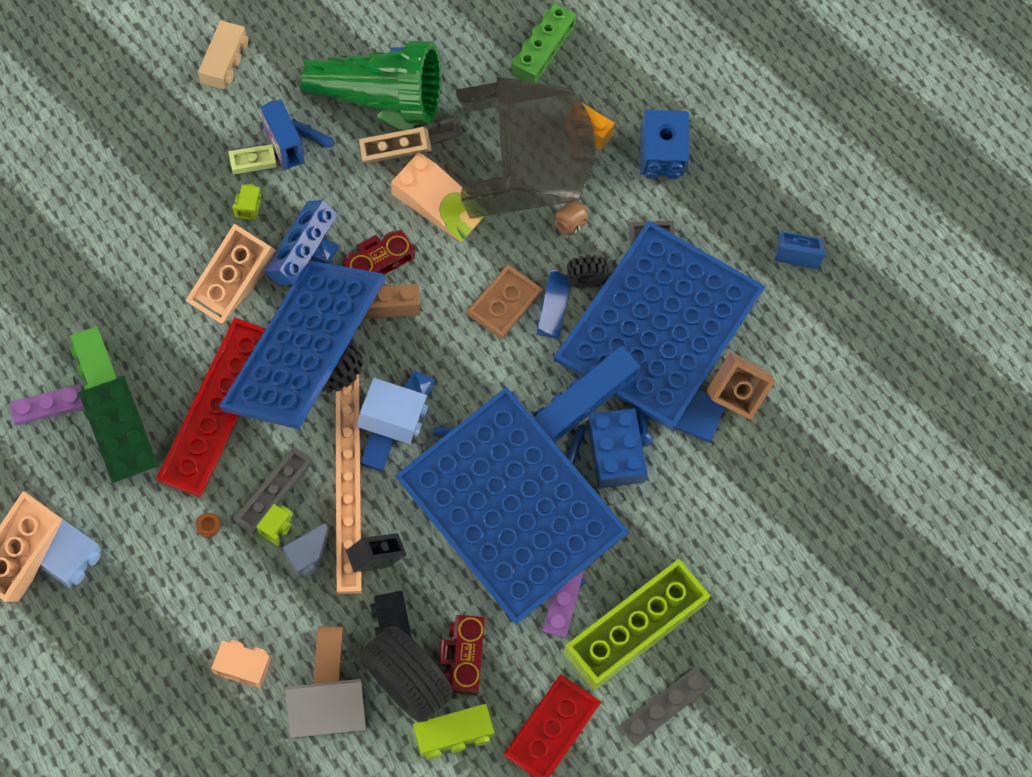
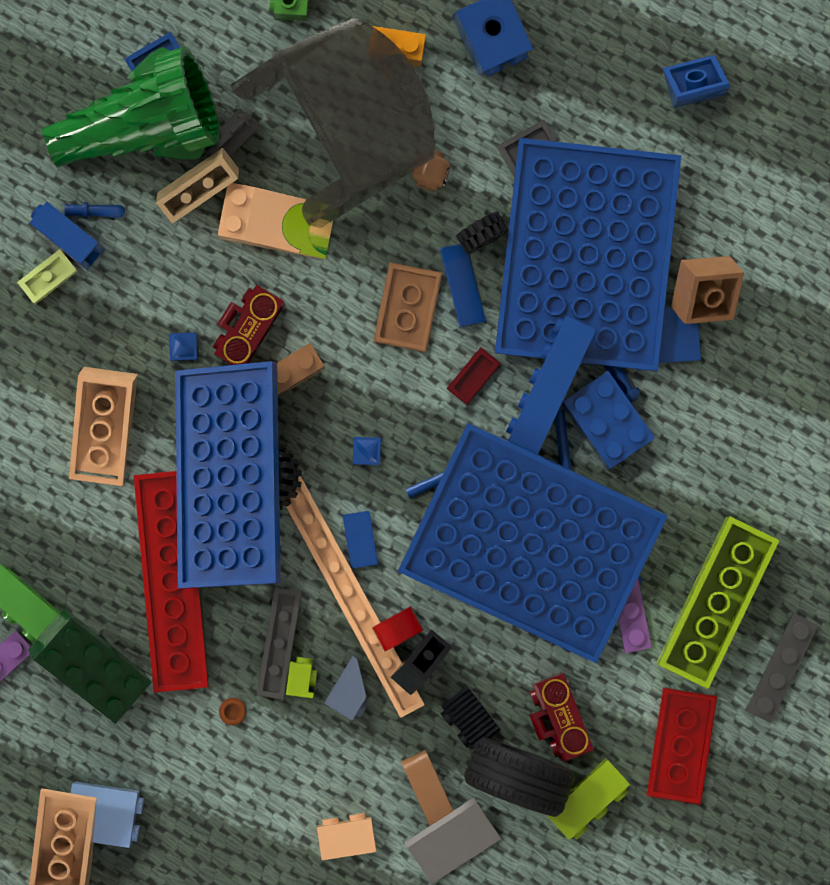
camera: 20 degrees left, 20 degrees up
(247, 202) = (71, 332): lime brick -> none
(300, 242) = (157, 354): blue brick -> none
(371, 520) = (397, 628): none -> red beam
(392, 411) = (357, 498): light blue brick -> none
(529, 372) = (473, 376): none -> dark red tile

